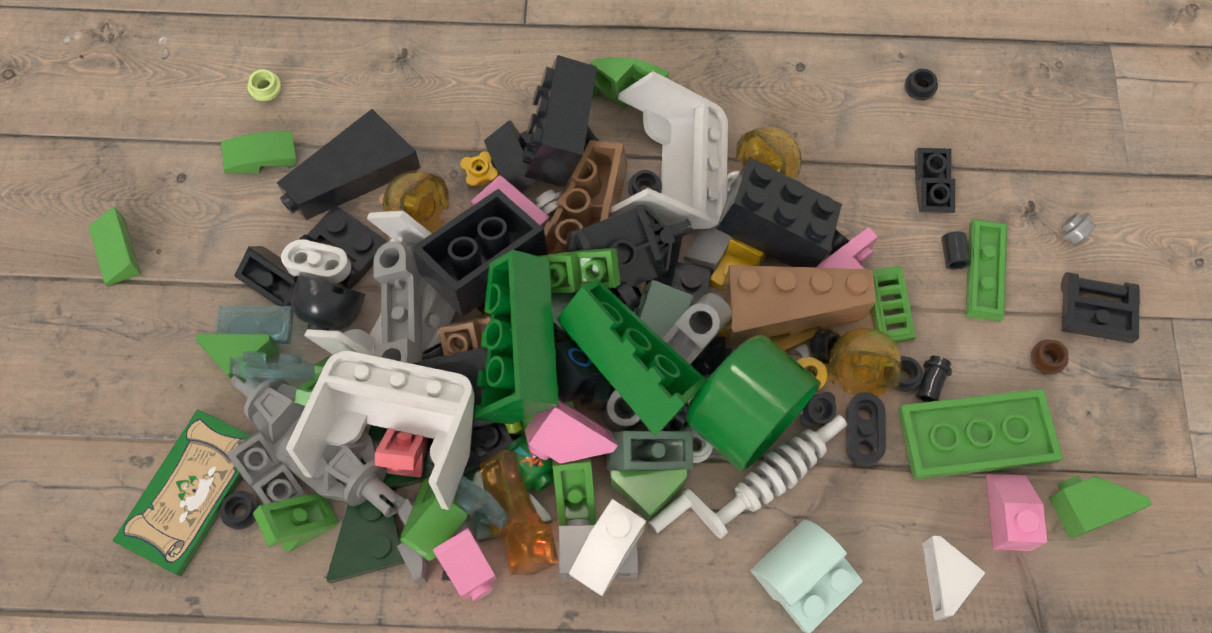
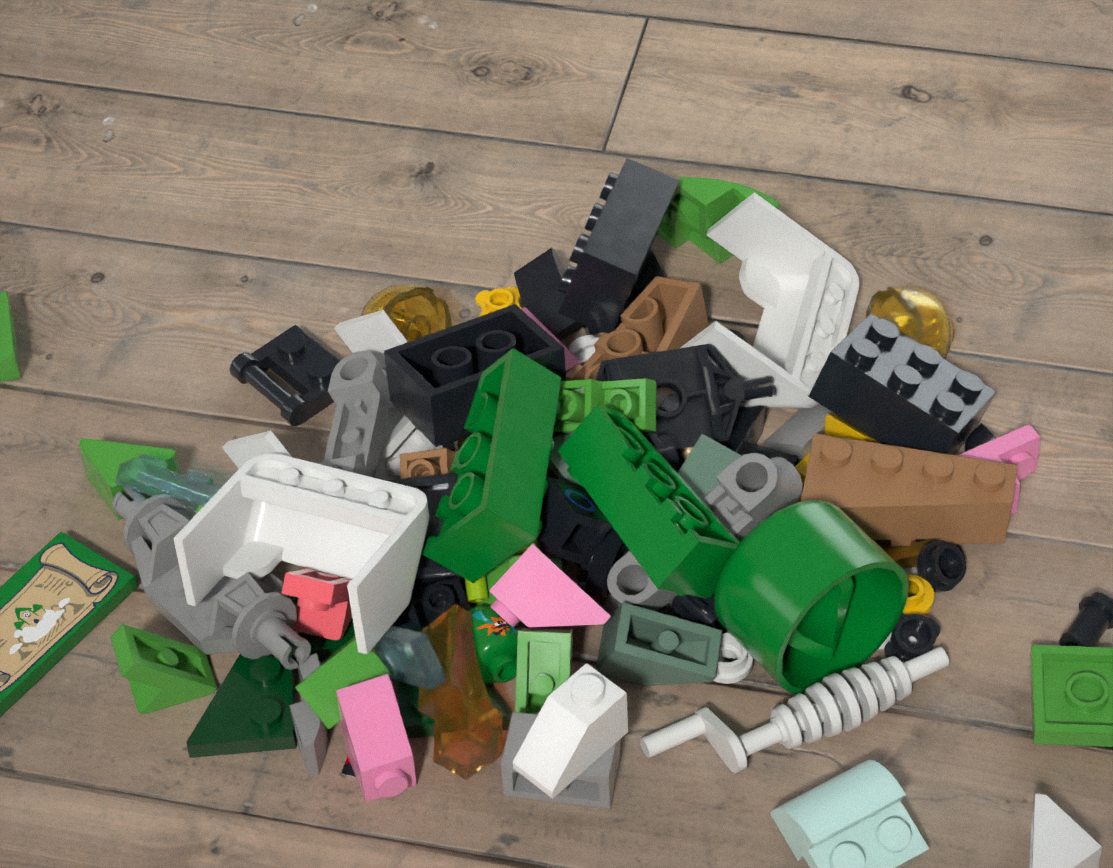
camera: 15 degrees right, 20 degrees down
(231, 503) = (86, 642): black plate -> none
(254, 150) = (193, 253): bright green slope -> none
(257, 320) = (189, 442): clear light blue plate -> none
(261, 79) = (231, 181): yellowish green plate -> none
(263, 471) = (126, 600): light grey slope -> none
(266, 275) = (193, 401): black slope -> none
(319, 261) = (256, 378): white plate -> none
(324, 304) = (247, 410): black cylinder -> none
(347, 167) = (318, 282): black slope -> none
(648, 489) = (655, 694): bright green slope -> none
(865, 362) = (988, 586): clear yellow cylinder -> none
(866, 431) = (974, 675): black plate -> none
(898, 288) = (1039, 500): bright green slope -> none
(914, 372) = (1052, 604): black plate -> none

